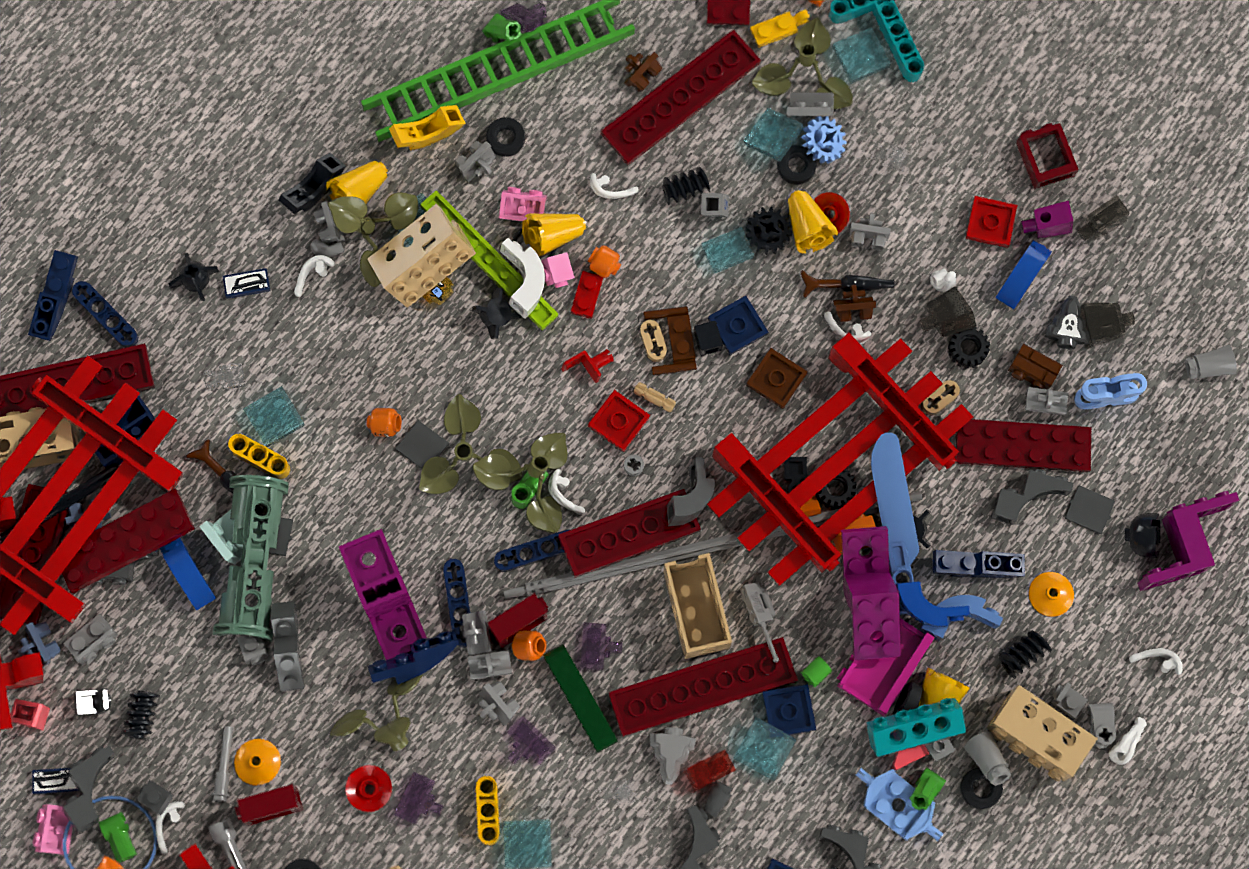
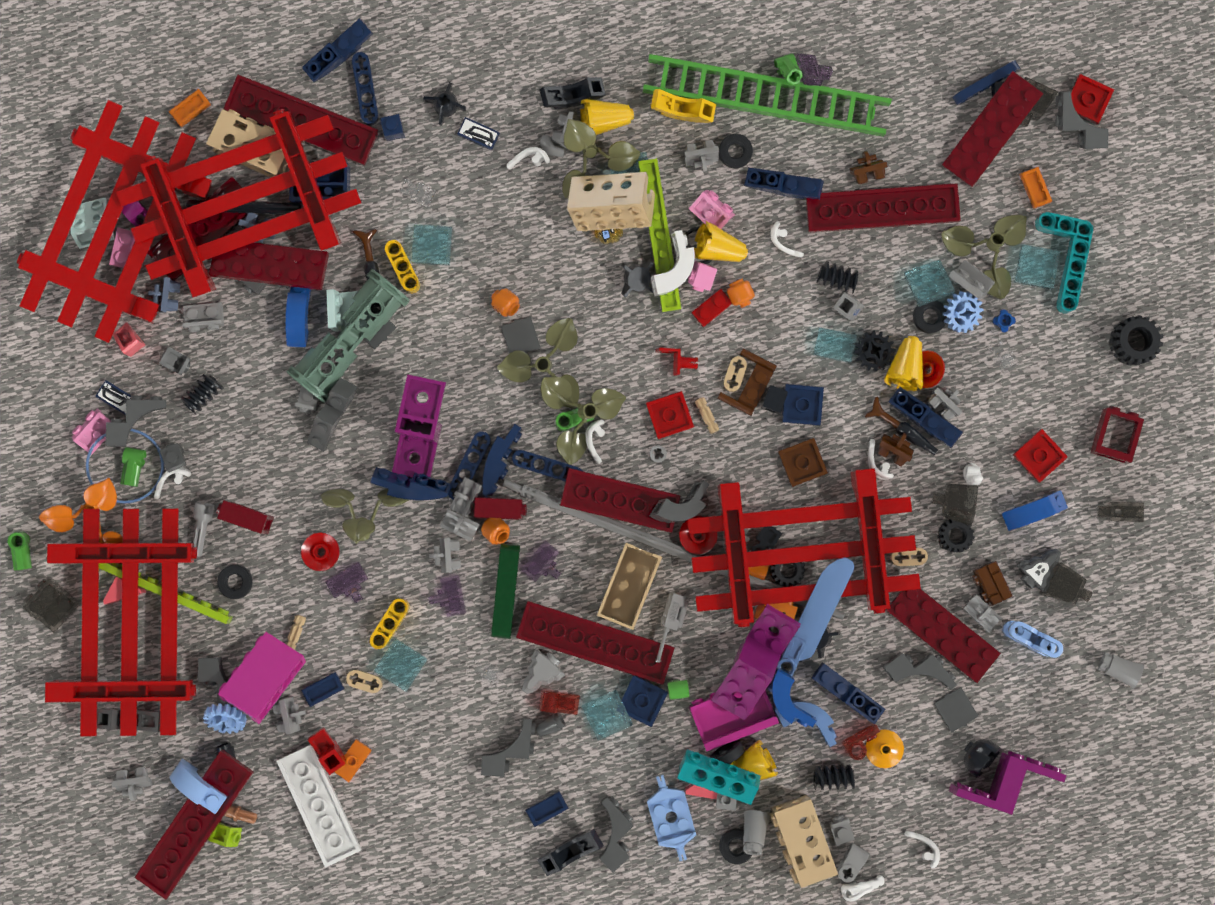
camera: 35 degrees right, 10 degrees up
(158, 331) = (392, 127): none -> dark blue brick
(222, 777) = (223, 480): light grey pin -> none
(268, 766) = (268, 482): light orange dish -> none
(484, 584) = (494, 466): none -> dark blue slope
(573, 136) = (783, 184): none -> dark blue slope
(736, 525) = (694, 545): none -> red dish
(778, 27) = (991, 204): yellow plate -> none
(860, 260) = (925, 418): none -> dark blue slope
(872, 119) = (1009, 320): none -> blue plate
(927, 789) = (698, 821): bright green piece -> none
(994, 74) = (1122, 347): none -> black tyre
(1020, 601) = (868, 734): none -> clear red plate
(1058, 220) = (1090, 488): magenta torso -> none

